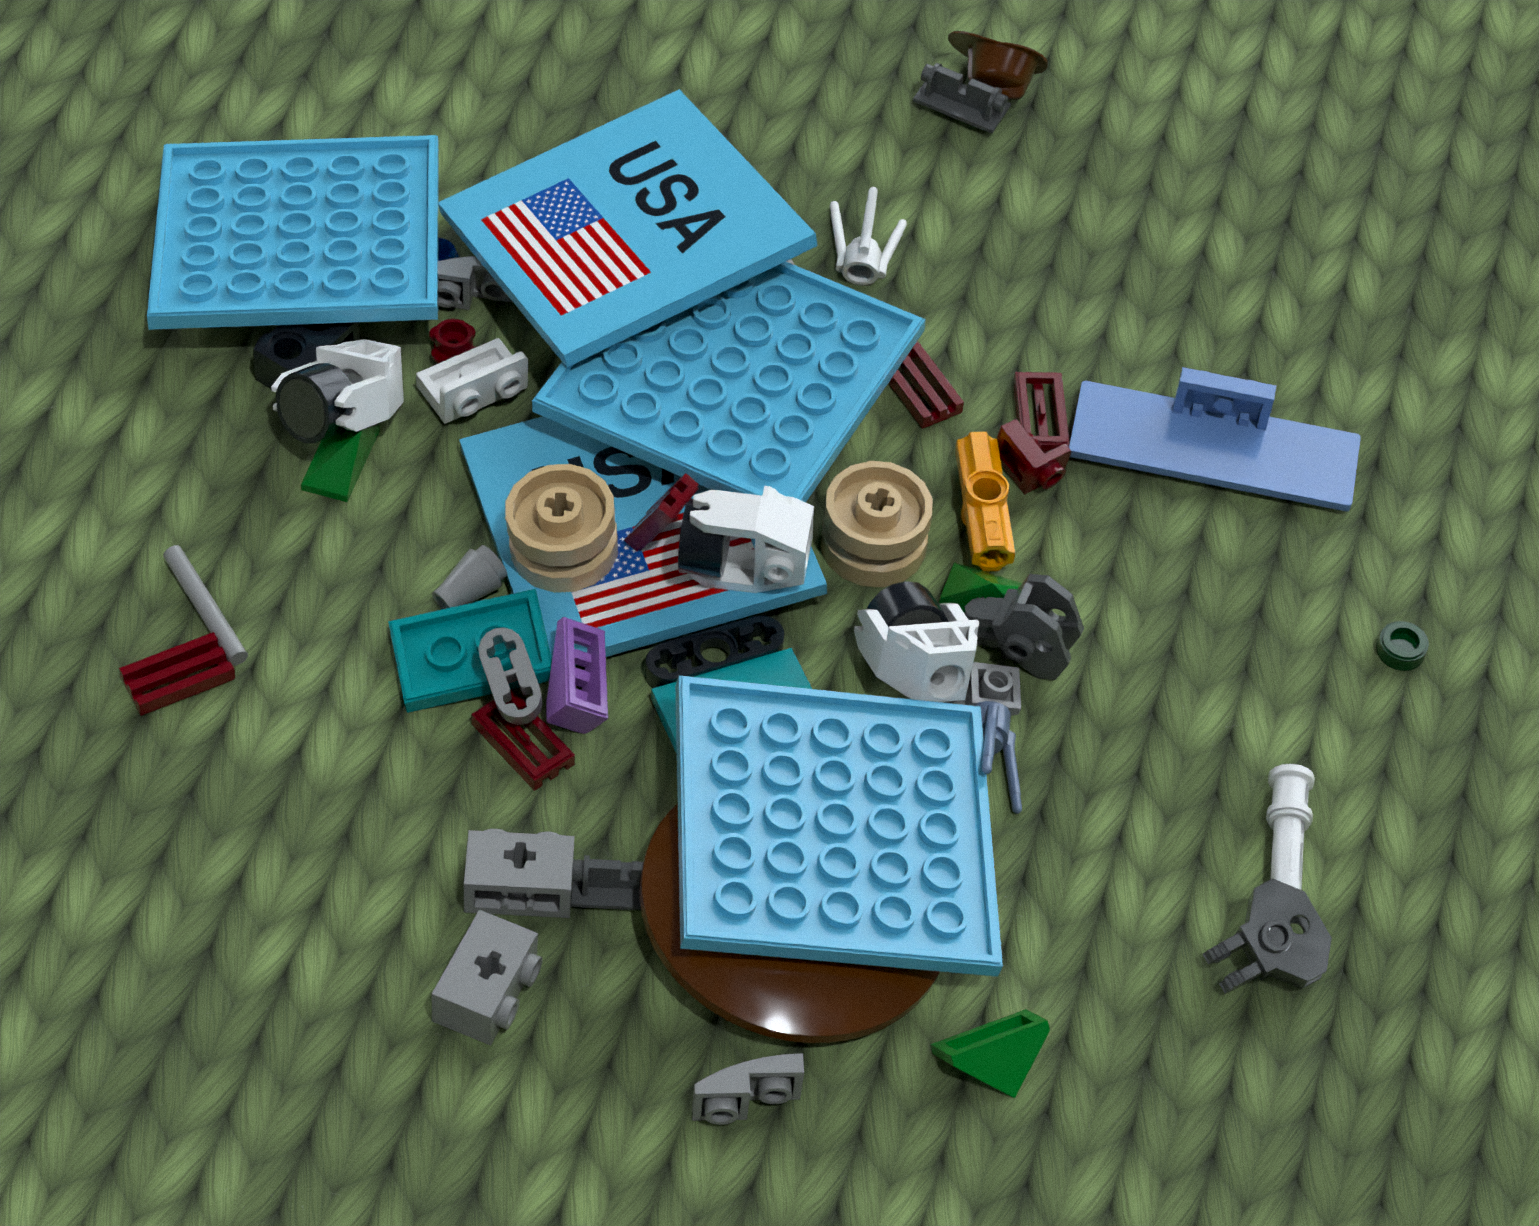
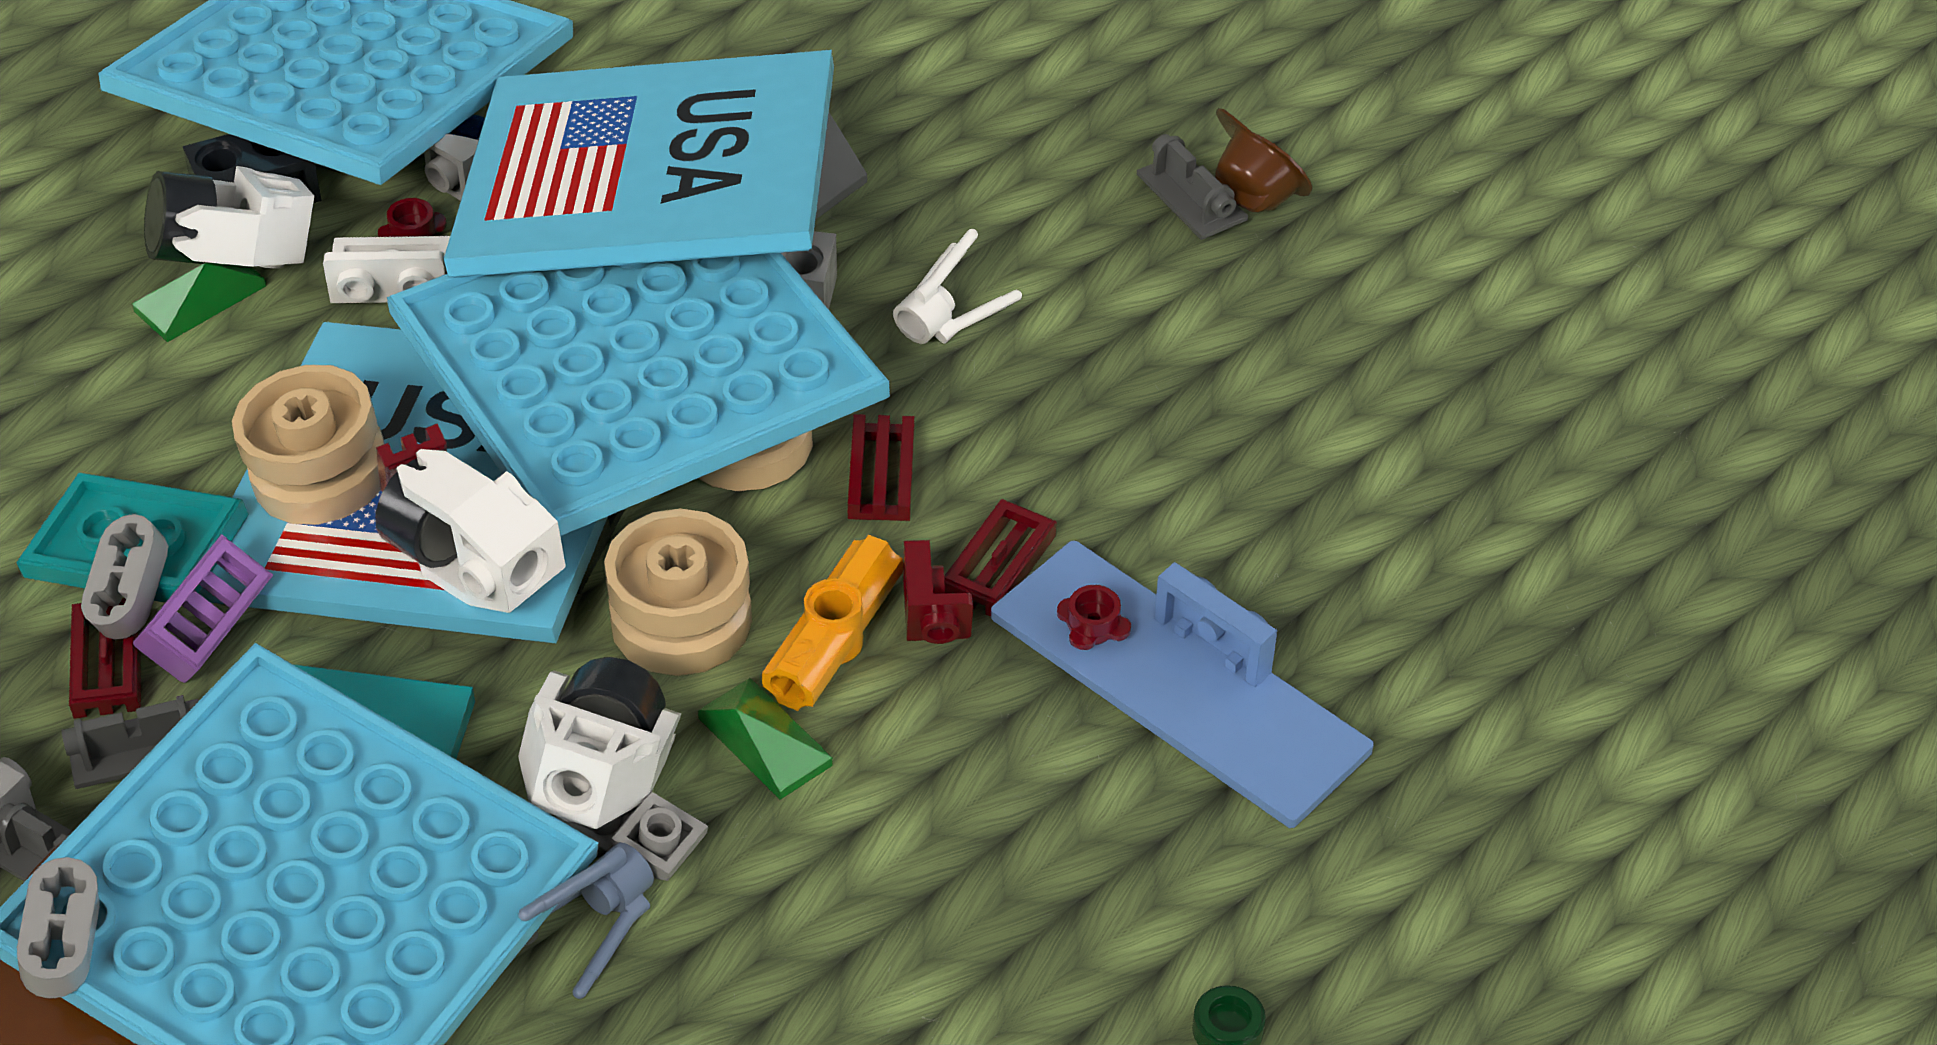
camera: 35 degrees right, 5 degrees down
(471, 579) = (201, 465): light grey cone -> none
(605, 784) = (112, 747): none -> dark grey hinge
(728, 637) = (370, 639): black beam -> none
(744, 906) = (42, 925): none -> light grey beam
(1027, 626) = (752, 781): dark grey hinge -> none
(1144, 426) = (1093, 617): none -> dark red plate

